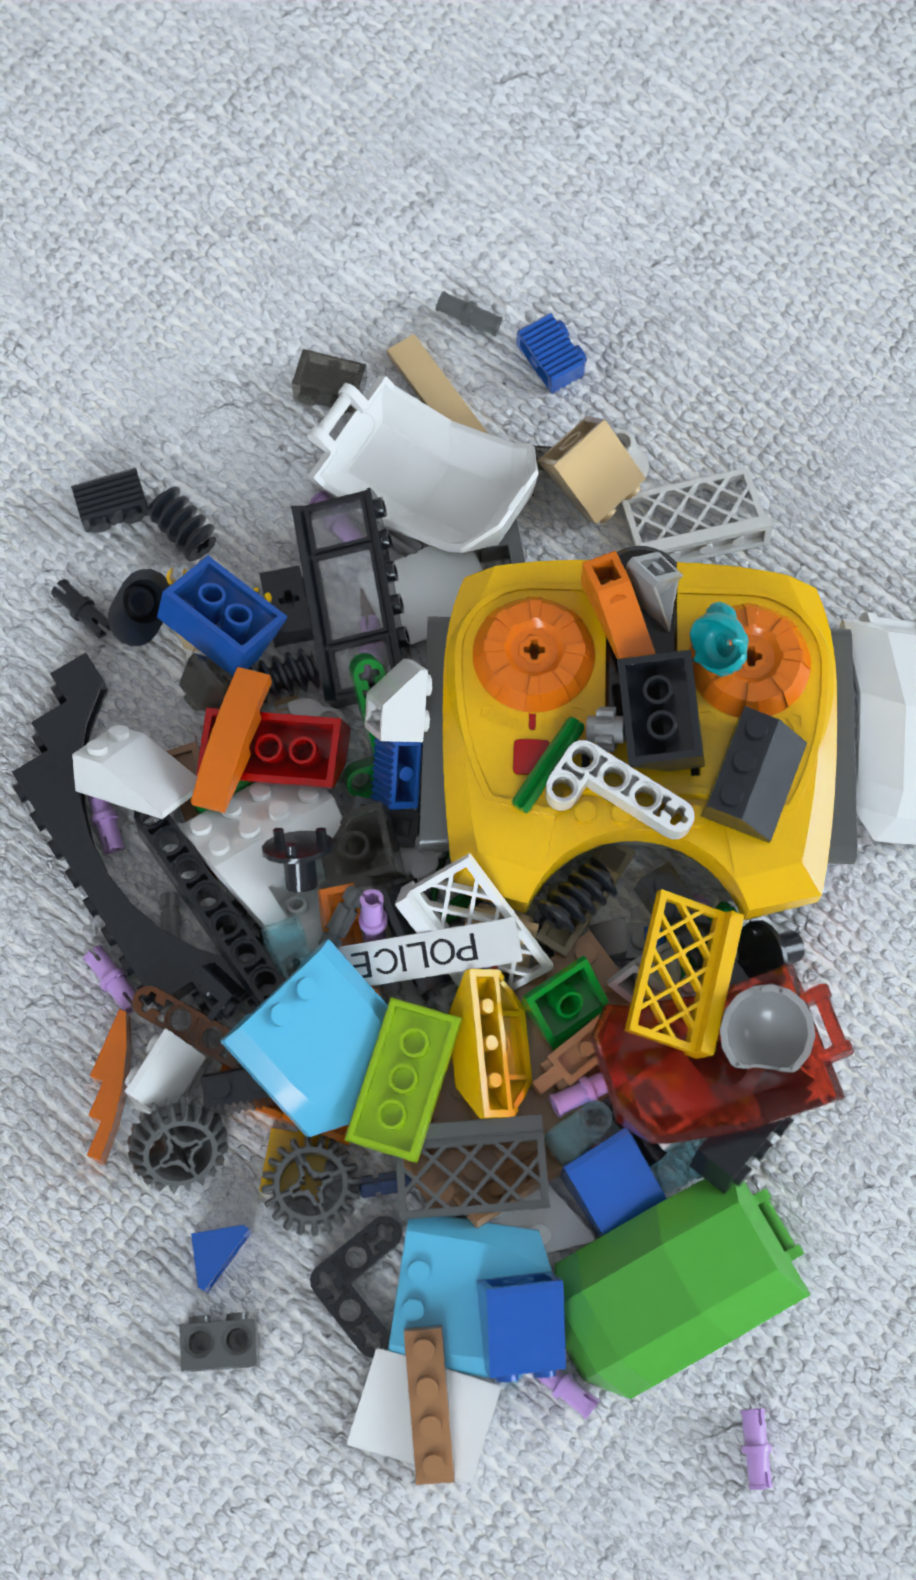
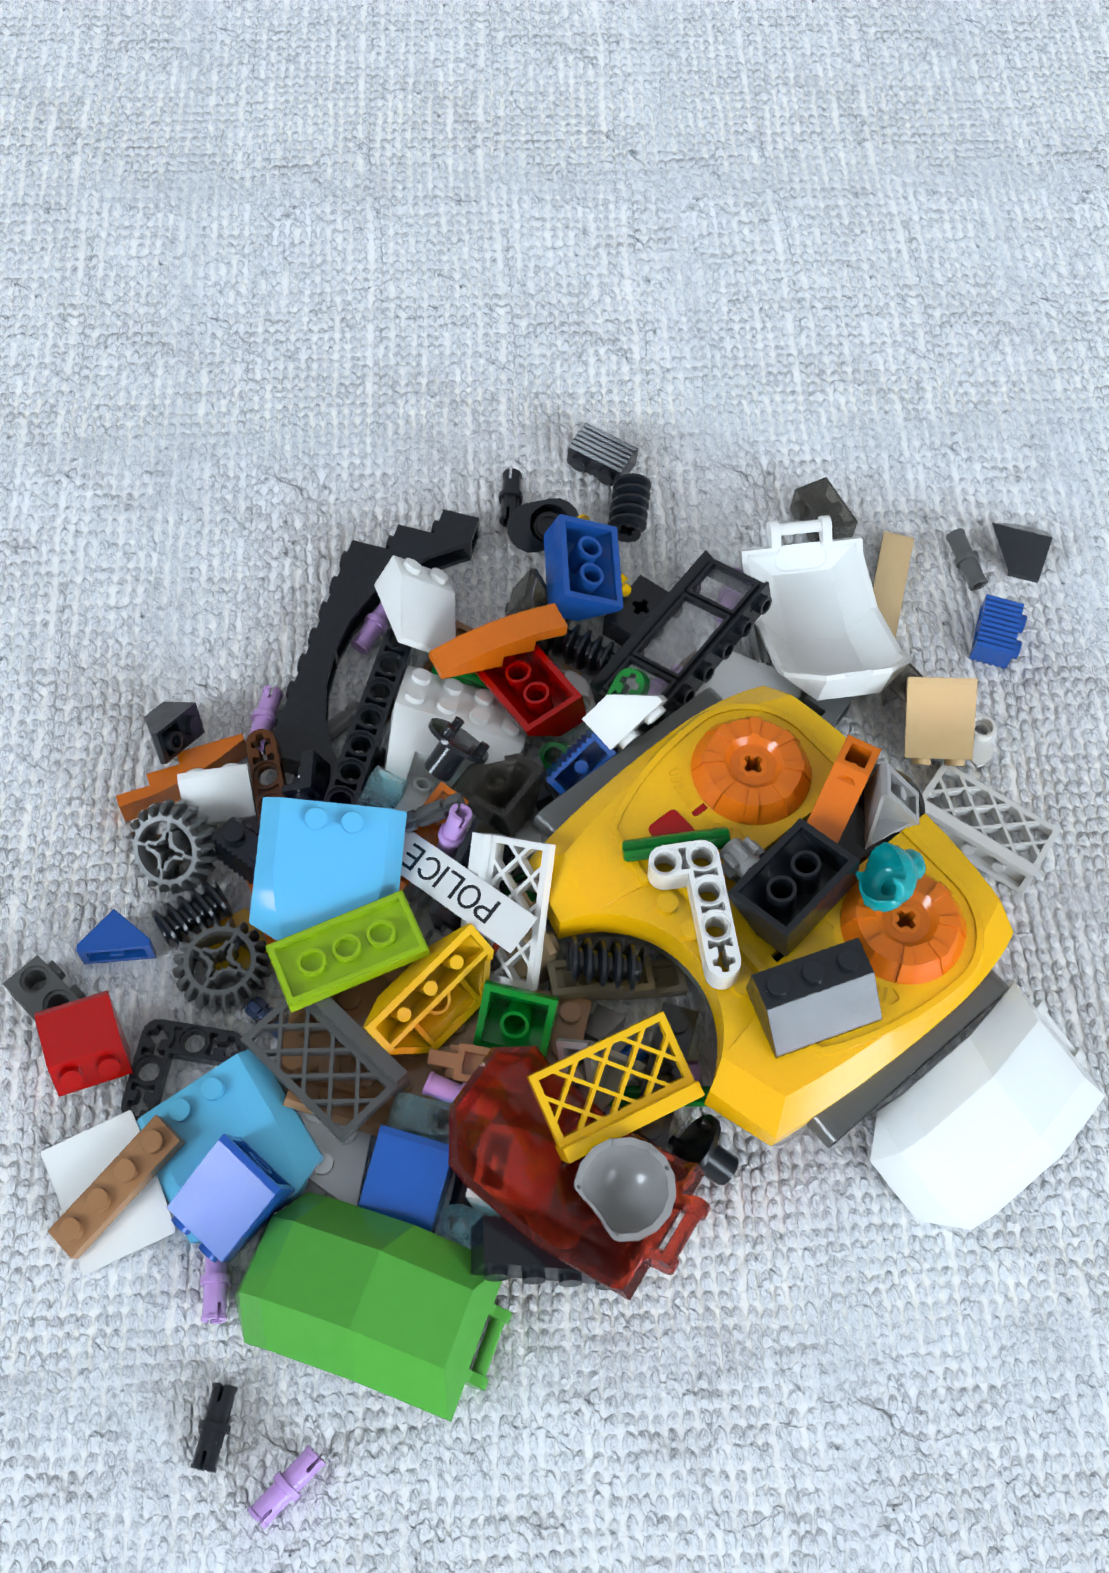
camera: 45 degrees right, 10 degrees down
(64, 1062) = (173, 728): none -> black slope
(245, 1174) = (192, 913): none -> black piece
(291, 1343) = (83, 1043): none -> red slope
(500, 262) = (1023, 549): none -> black slope
(670, 1469) = (214, 1427): none -> black pin

